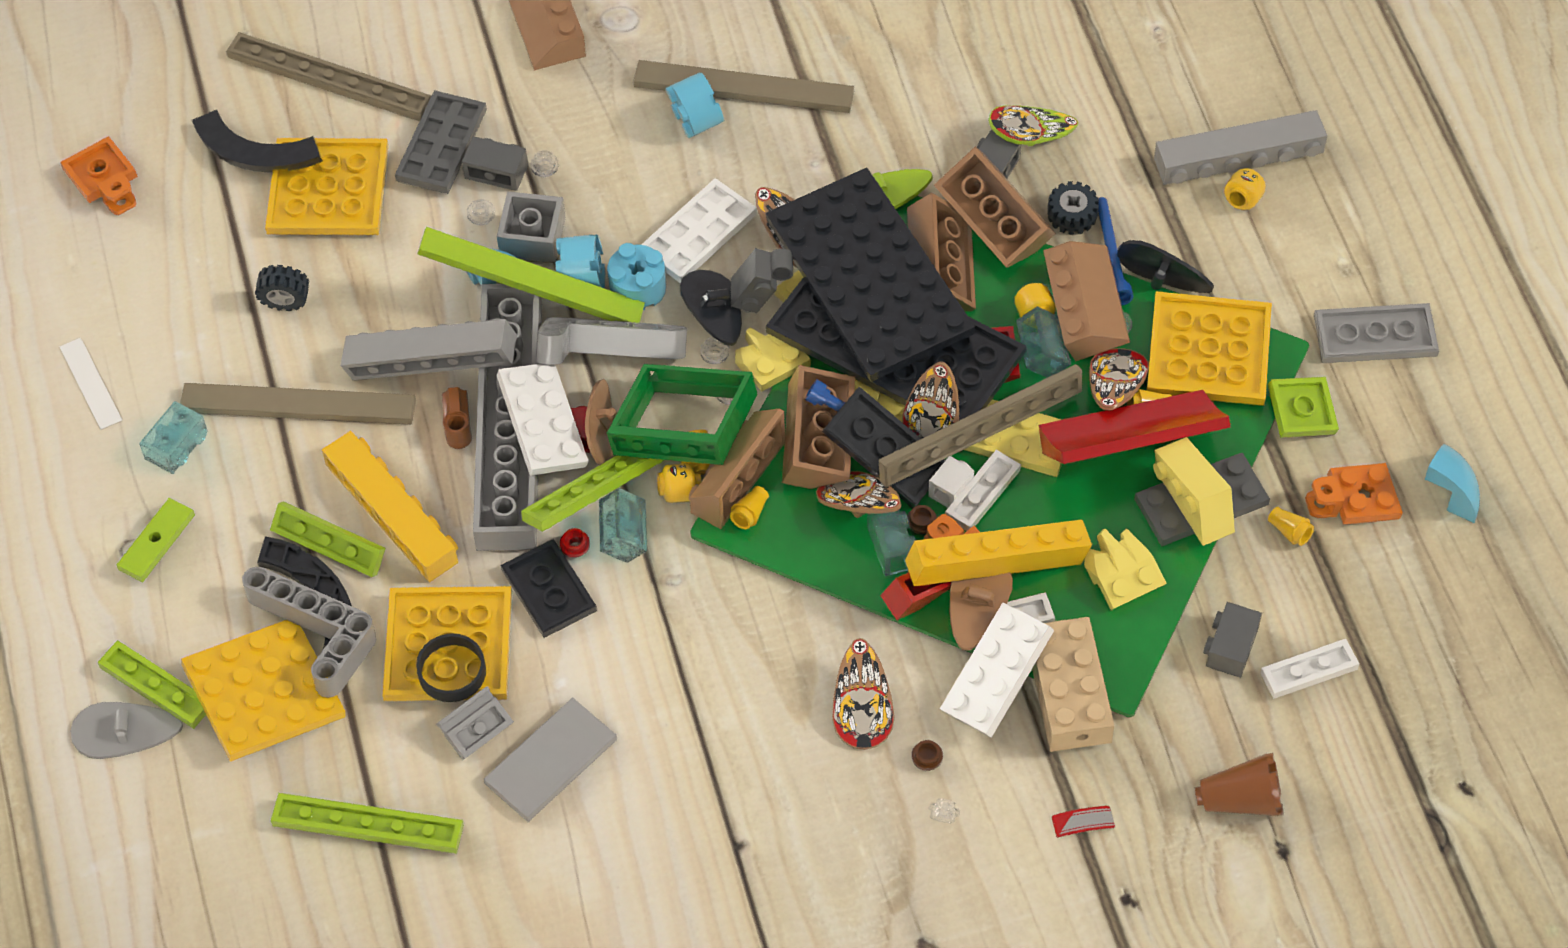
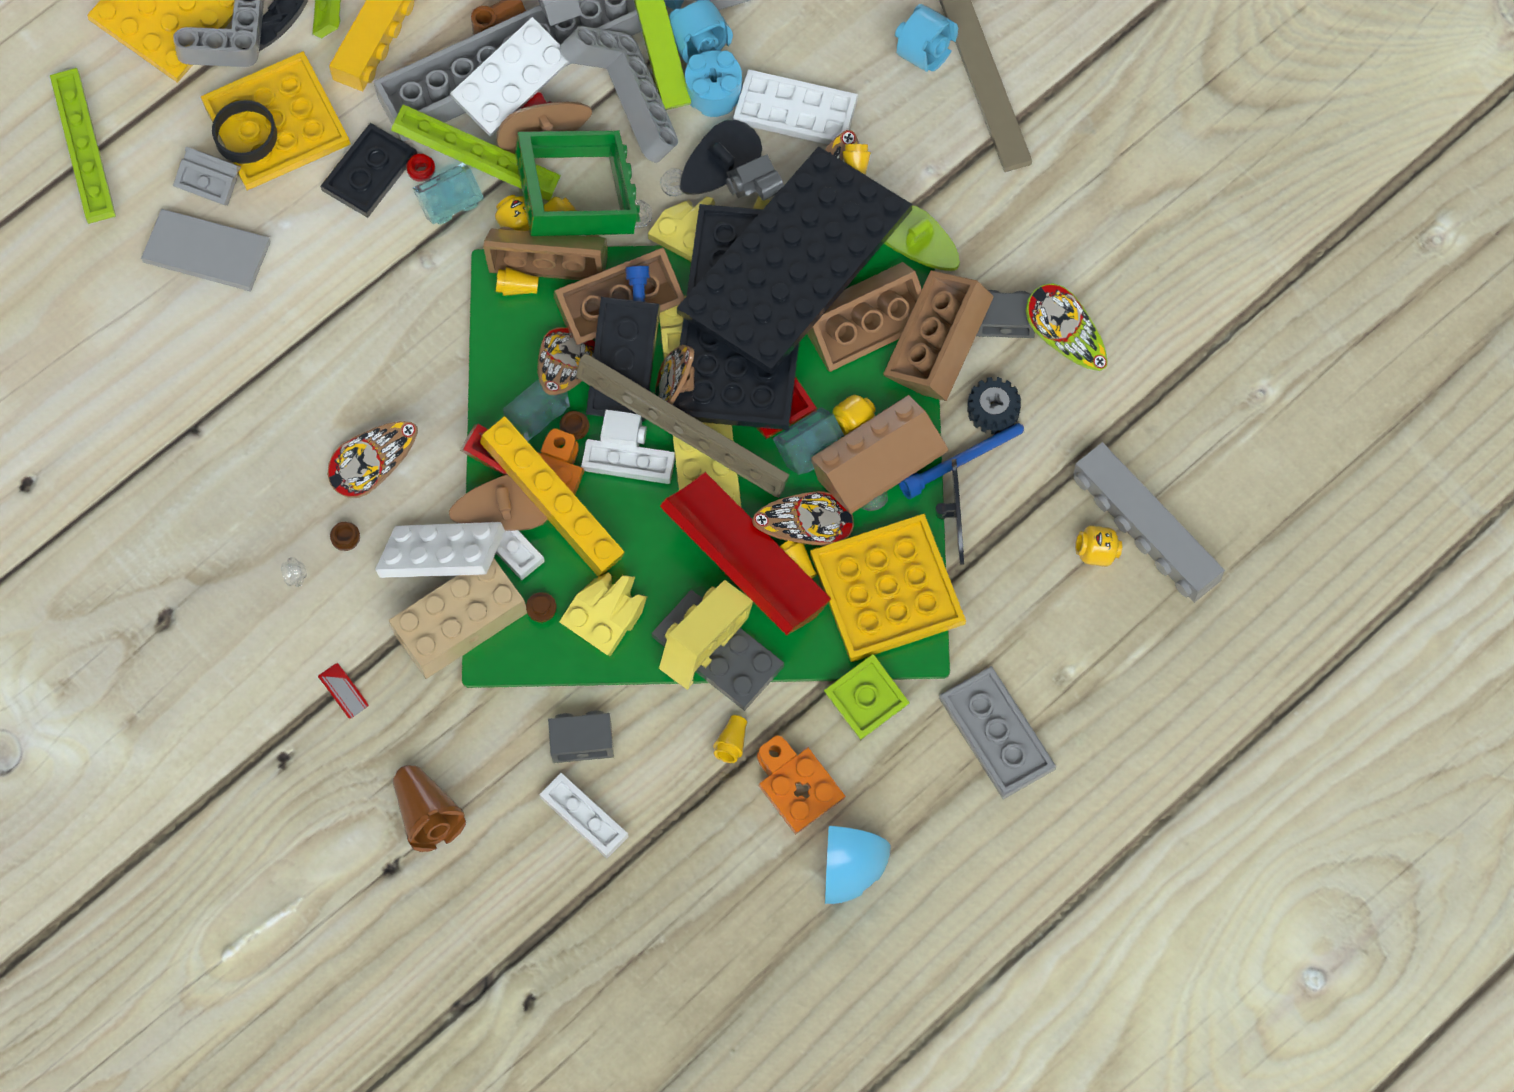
camera: 65 degrees right, 10 degrees up
(787, 191) = (857, 156): none -> yellow cone
(1096, 614) = (541, 607): none -> reddish brown plate

